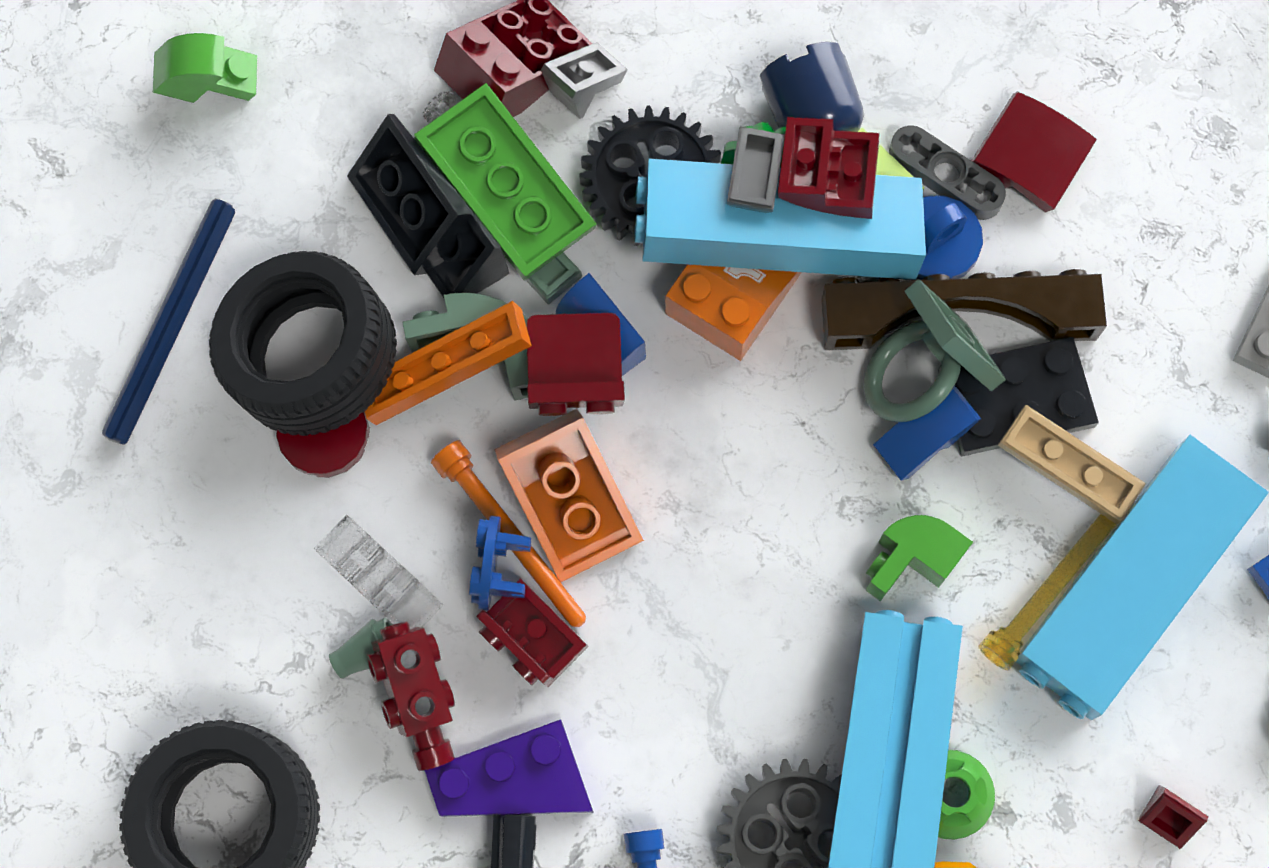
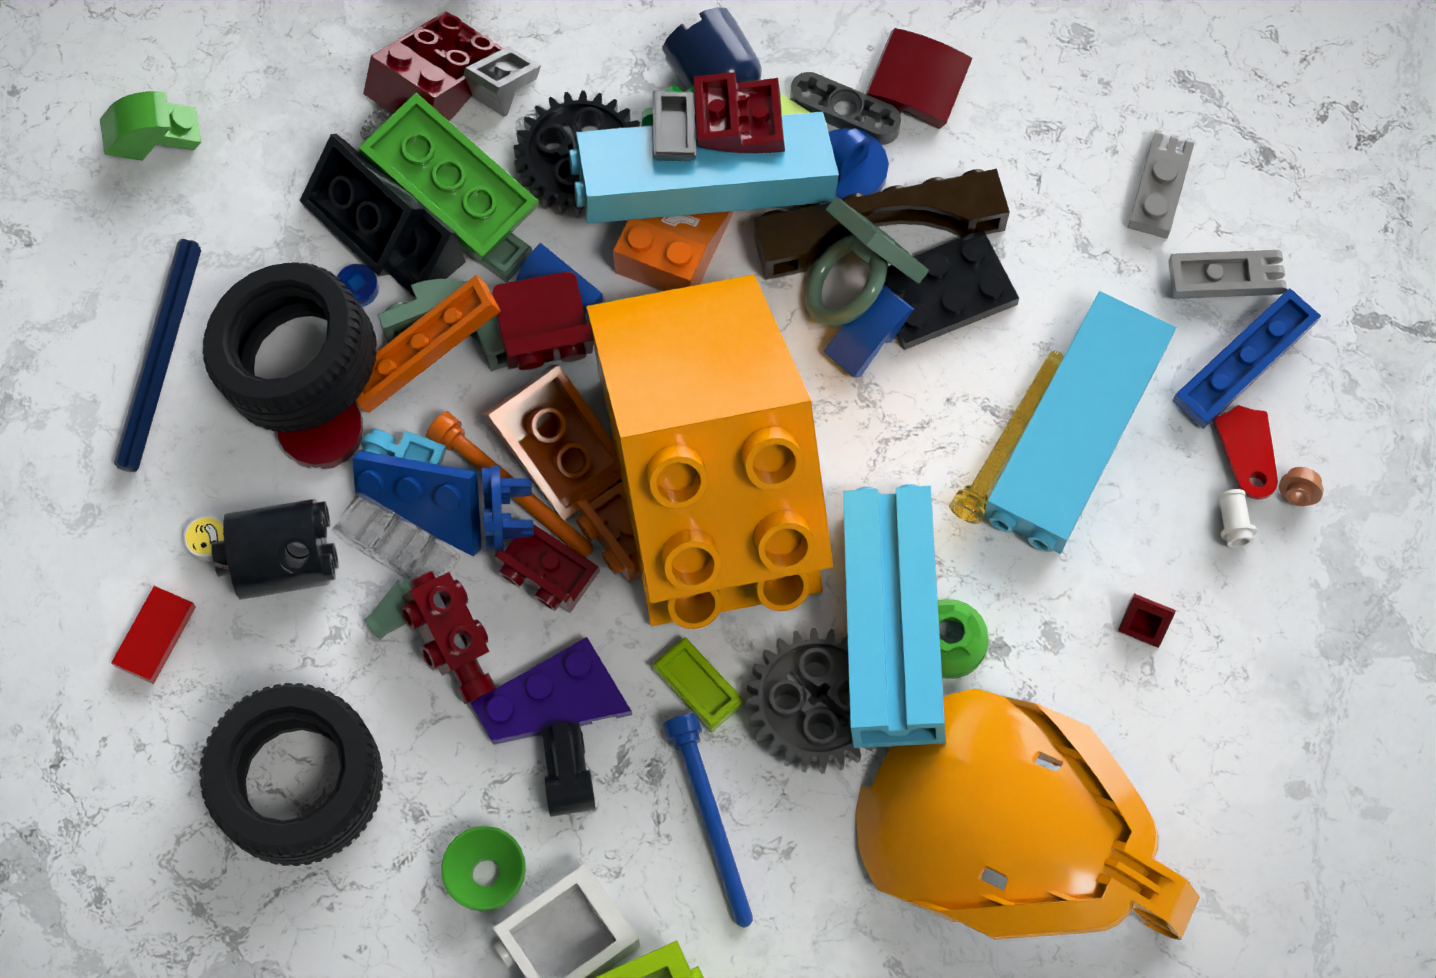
camera: 15 degrees left, 5 degrees down
(109, 628) = (153, 634): none -> red tile
(183, 532) = (201, 534): none -> light yellow tile
(249, 564) = (262, 554): none -> black cylinder
(390, 280) = (361, 282): none -> clear blue tile
(413, 486) = (411, 446): none -> medium azure plate
(415, 530) = (426, 494): none -> blue wing
(621, 610) = (610, 524): none -> orange bracket
(670, 793) = (698, 684): none -> lime tile
(729, 545) = (712, 451): none -> light orange arch
(918, 542) = (879, 427): bright green brick -> none
(1071, 464) = (1001, 335): tan tile -> none

